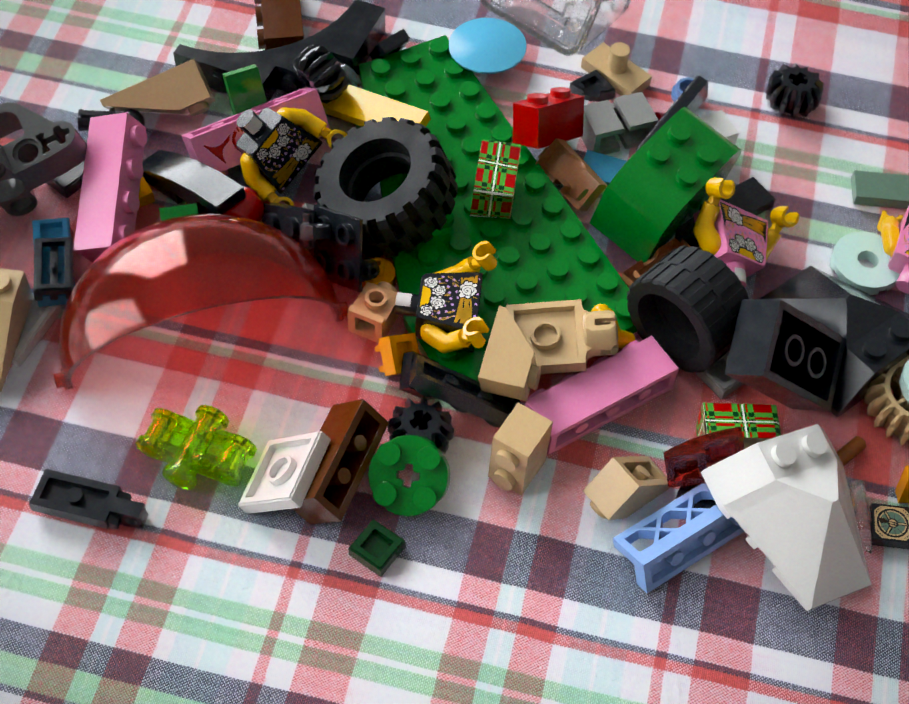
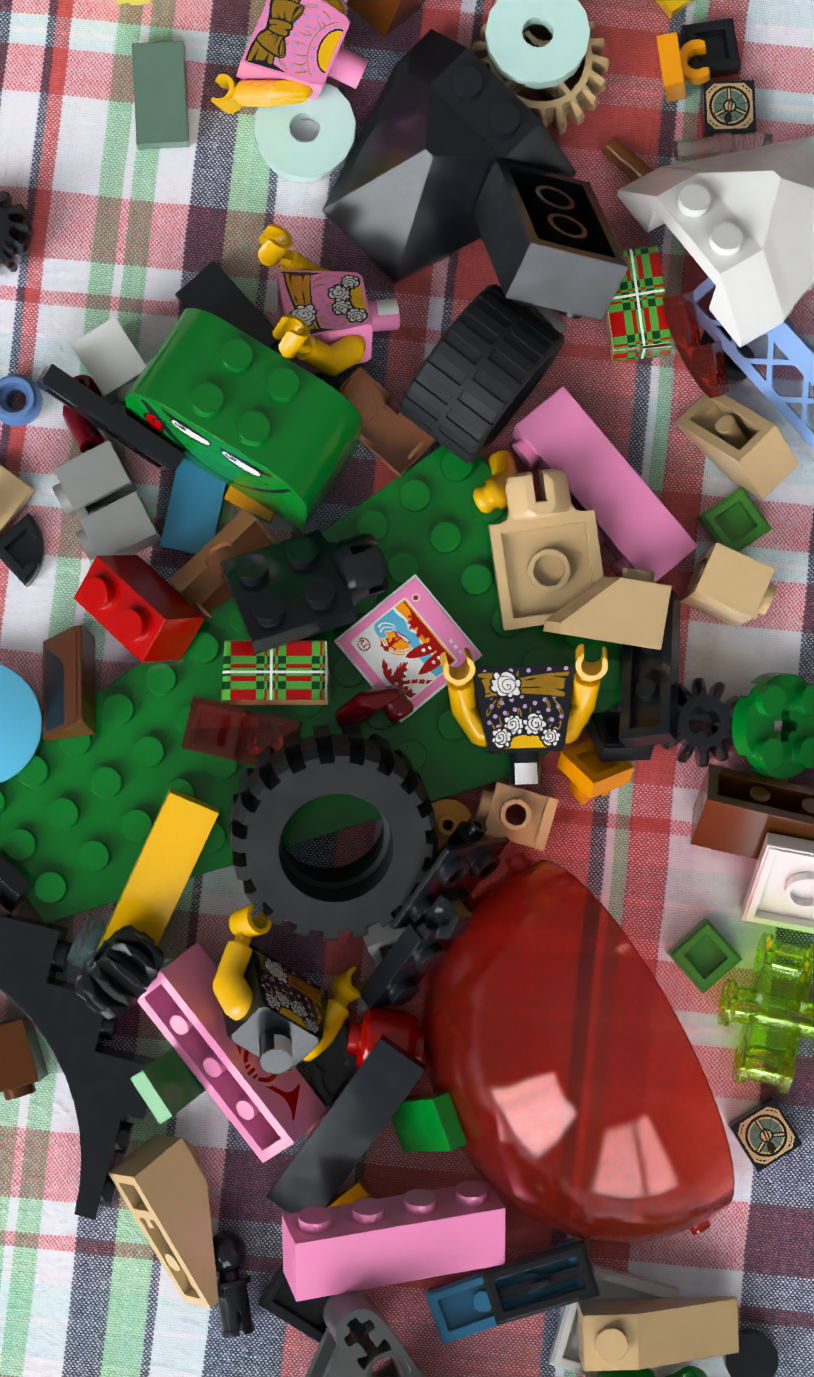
camera: 100 degrees left, 30 degrees up
(109, 432) = (764, 1134): none -> tile
(249, 414) = (704, 955): none -> bright green tile
(463, 153) = (234, 731): none -> clear red slope
(465, 226) = (369, 702): none -> dark red arm
(498, 89) = (69, 684): none -> reddish brown slope
(516, 255) = (404, 642): none -> tile
(552, 196) = (303, 586): none -> black plate
(565, 482) = (734, 521): none -> bright green tile

